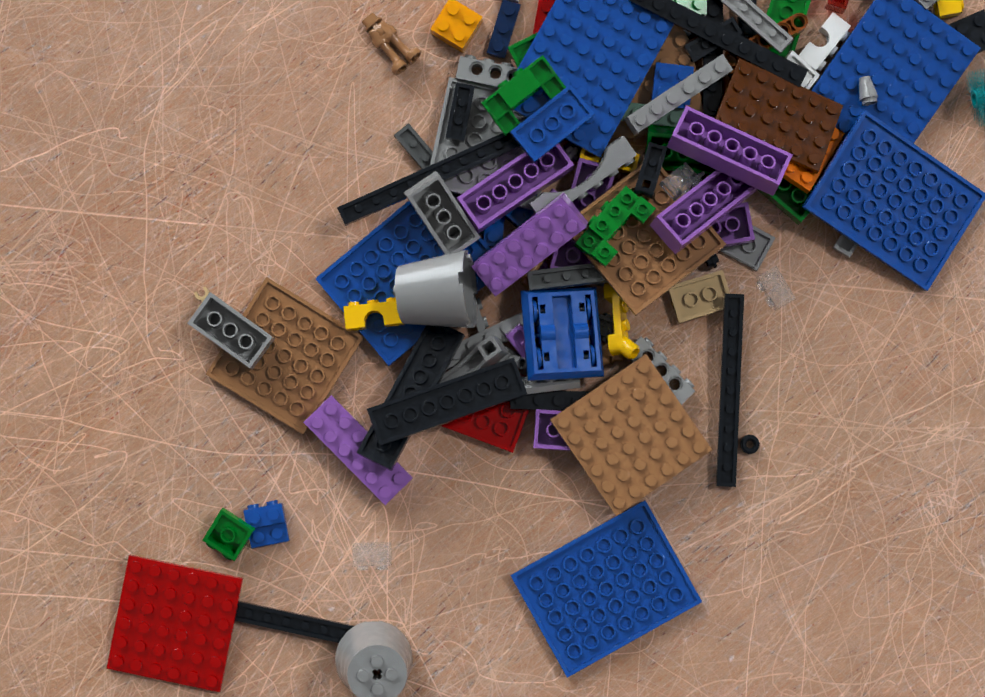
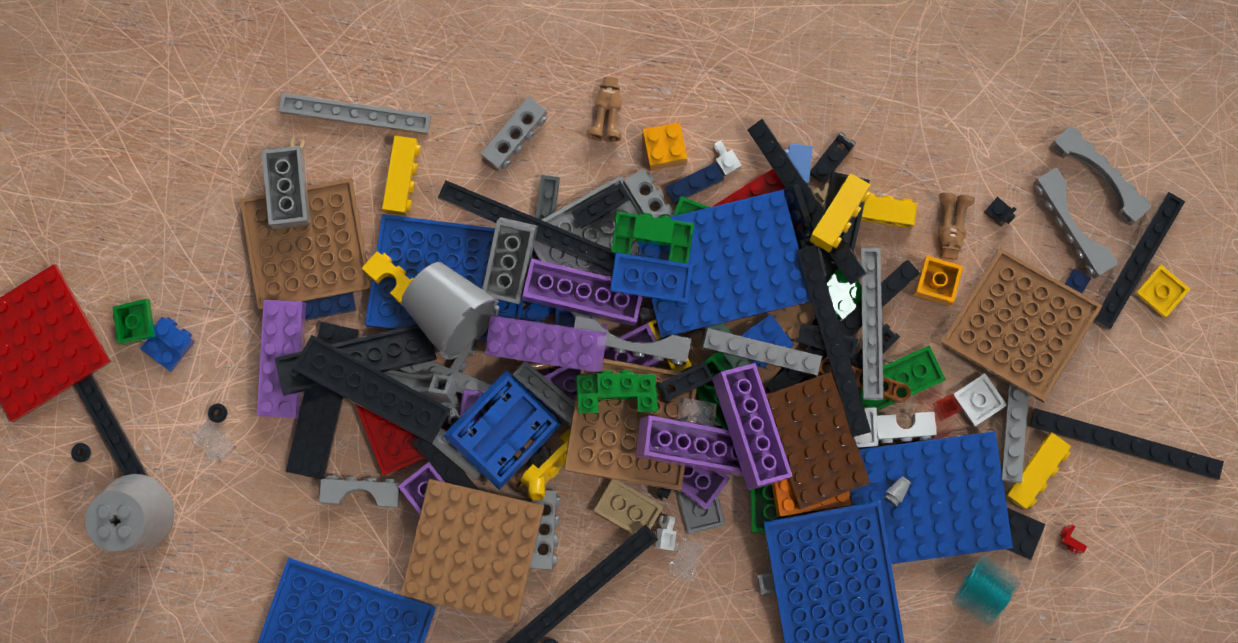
camera: 45 degrees right, 5 degrees down
(218, 230) = (355, 113): none -> light grey plate
(297, 660) = (86, 455): none -> black plate
(298, 239) = (400, 176): none -> yellow brick
(336, 98) = (528, 109): none -> light grey brick
(349, 379) = (330, 306): none -> dark blue plate
(349, 528) = (211, 413): none -> black plate
(424, 461) = (318, 418): none -> black plate
(527, 462) = (335, 491): none -> light grey arch
(744, 286) = (666, 535): none -> white plate

